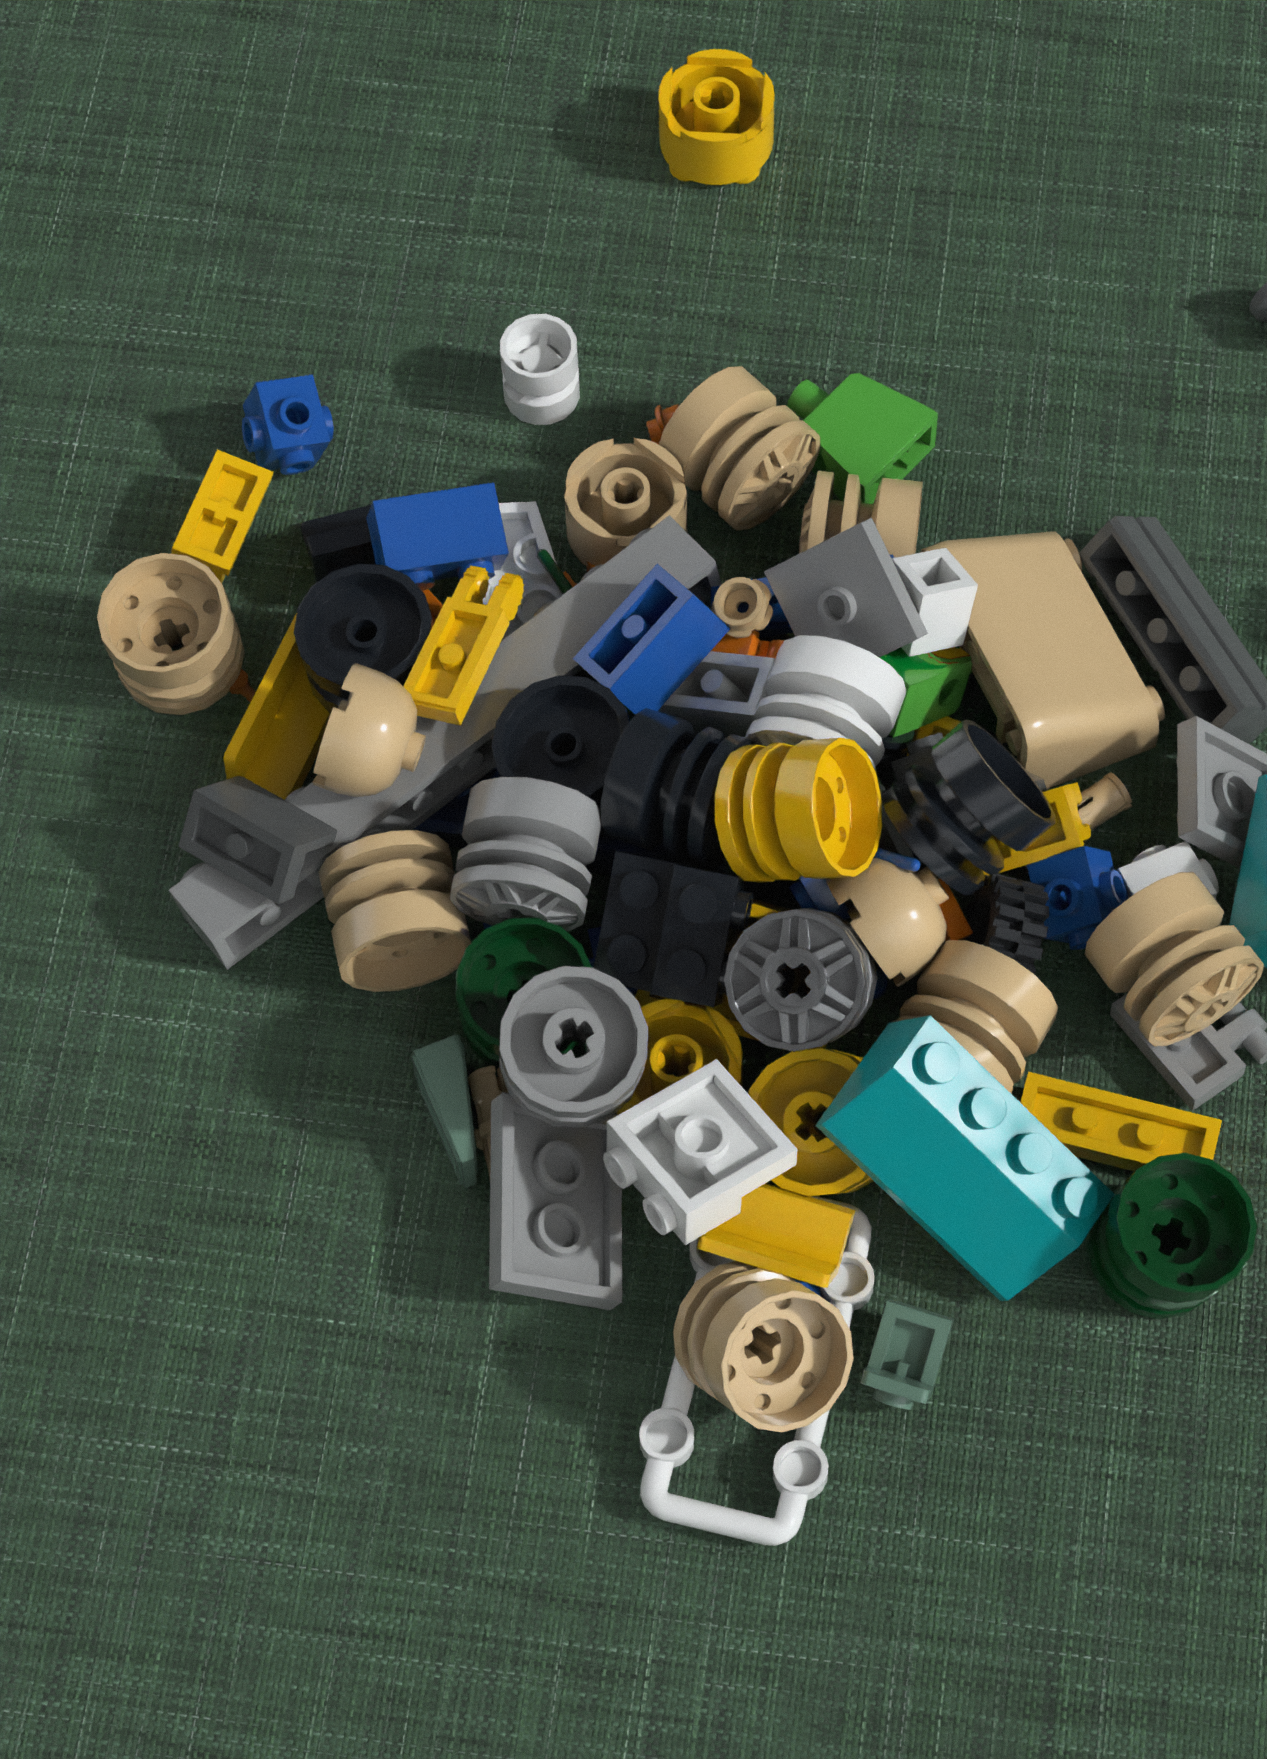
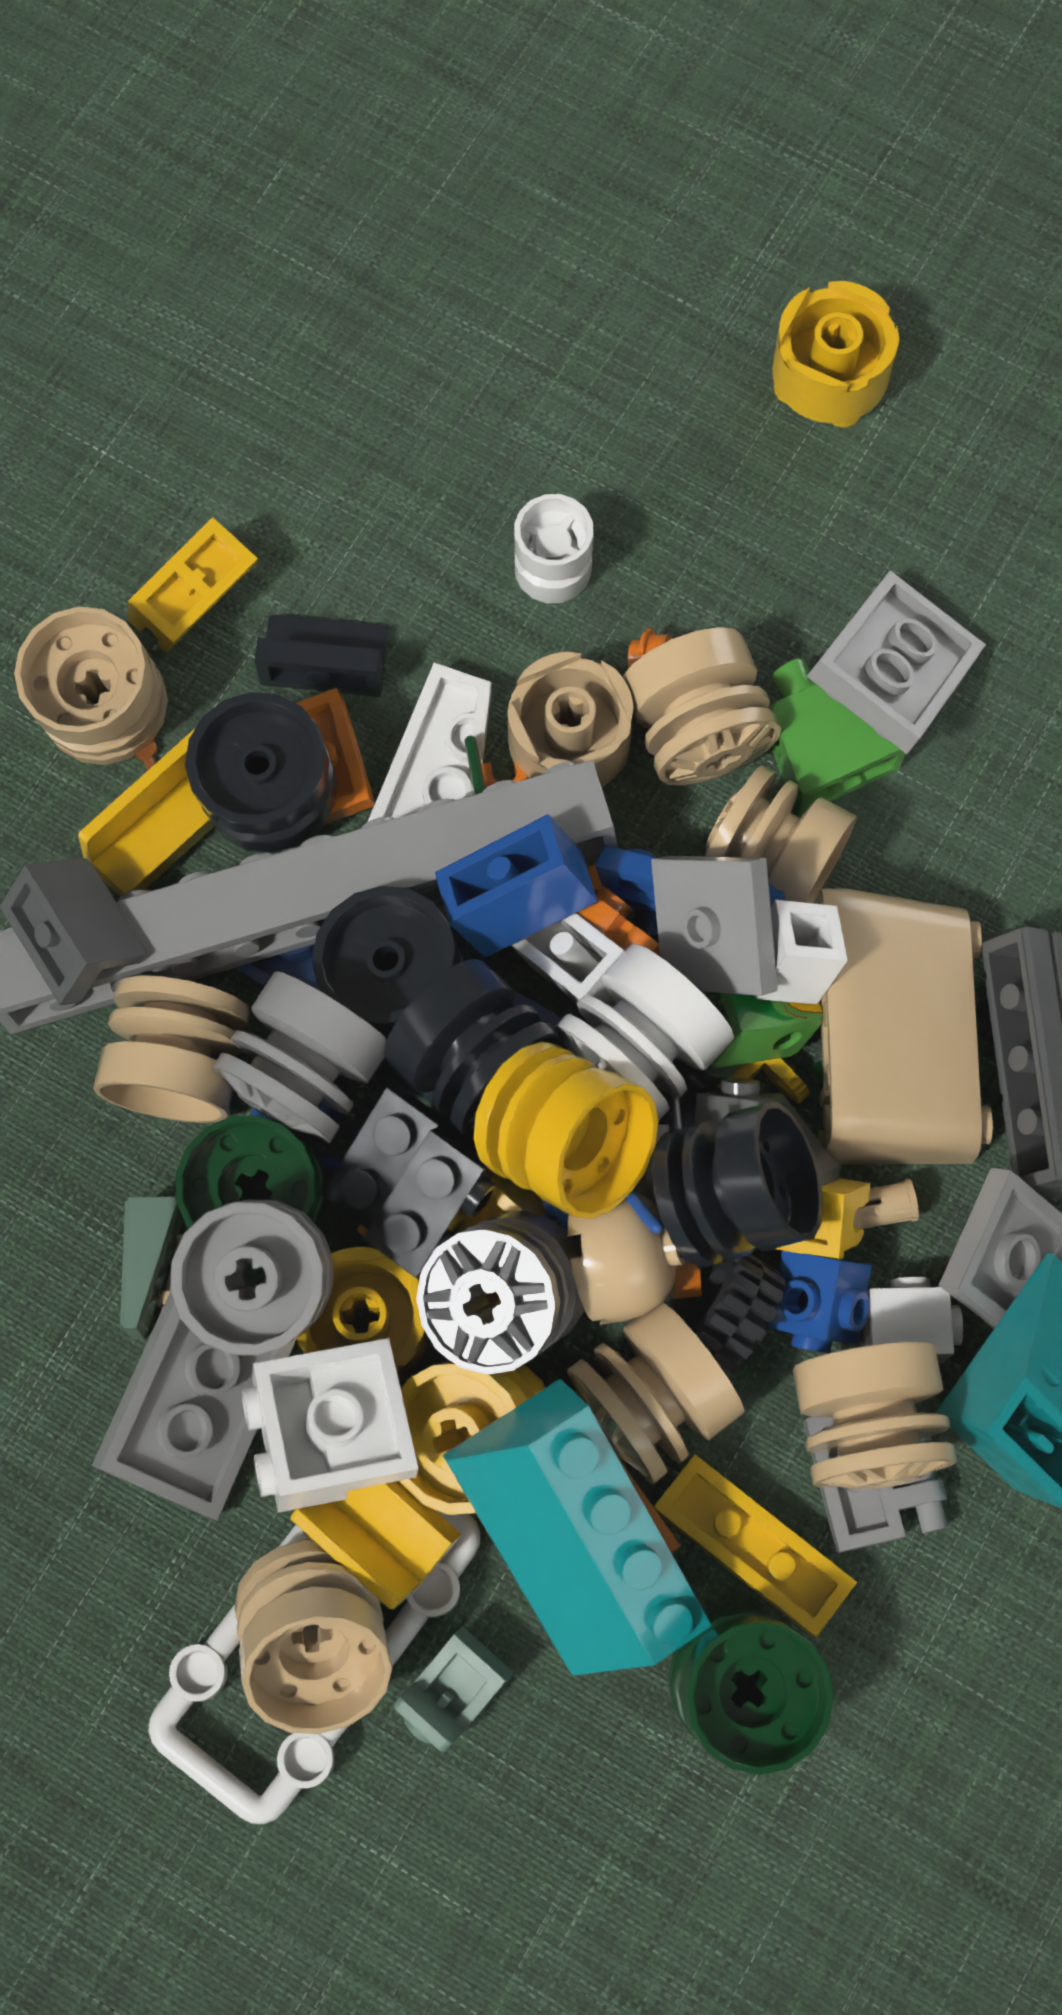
camera: 20 degrees right, 10 degrees up
(286, 424) = (305, 498): blue brick -> none
(369, 736) = (206, 876): tan cylinder -> none
(439, 533) = (372, 690): blue brick -> none
(462, 645) = (338, 816): yellow hinge -> none
(739, 591) = (603, 879): tan plate -> none
(895, 348) = (897, 662): none -> light grey plate

